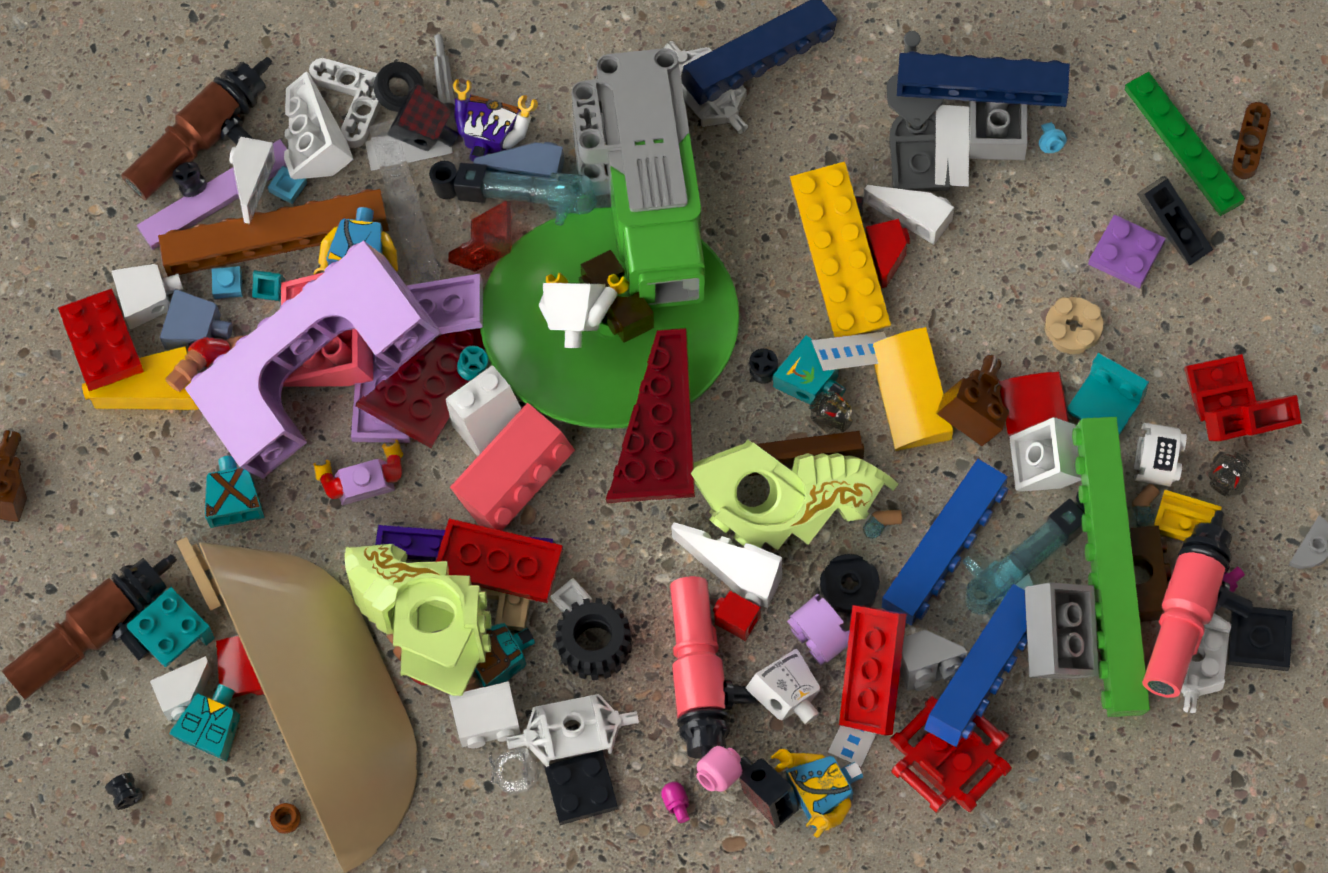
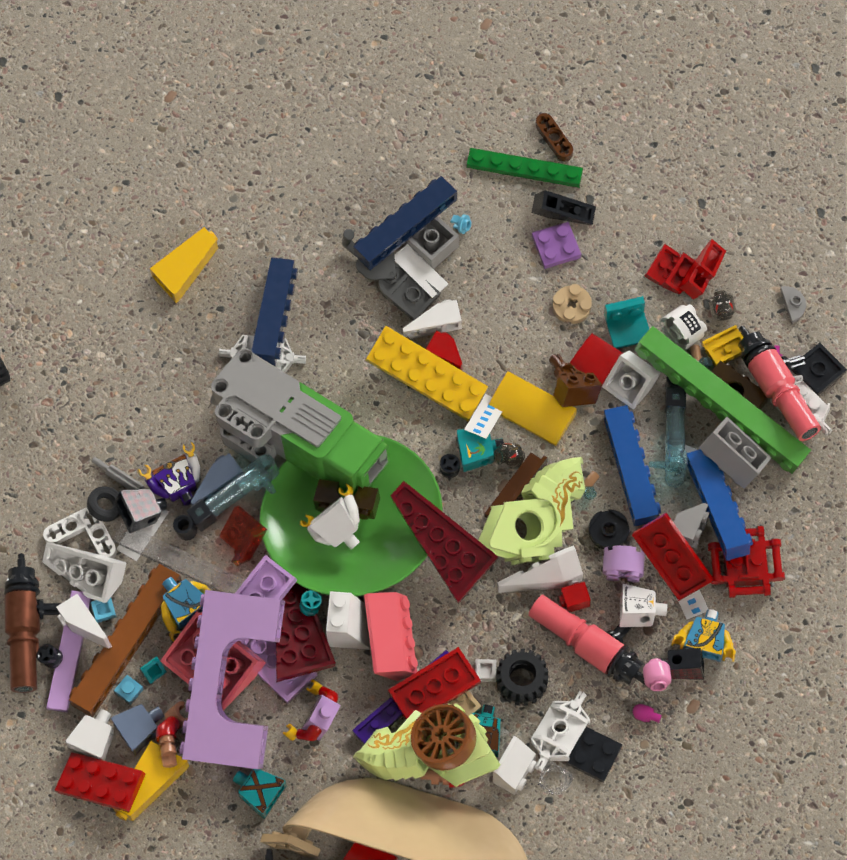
camera: 50 degrees left, 0 degrees up
(422, 598) = (443, 737): none -> dark orange piece

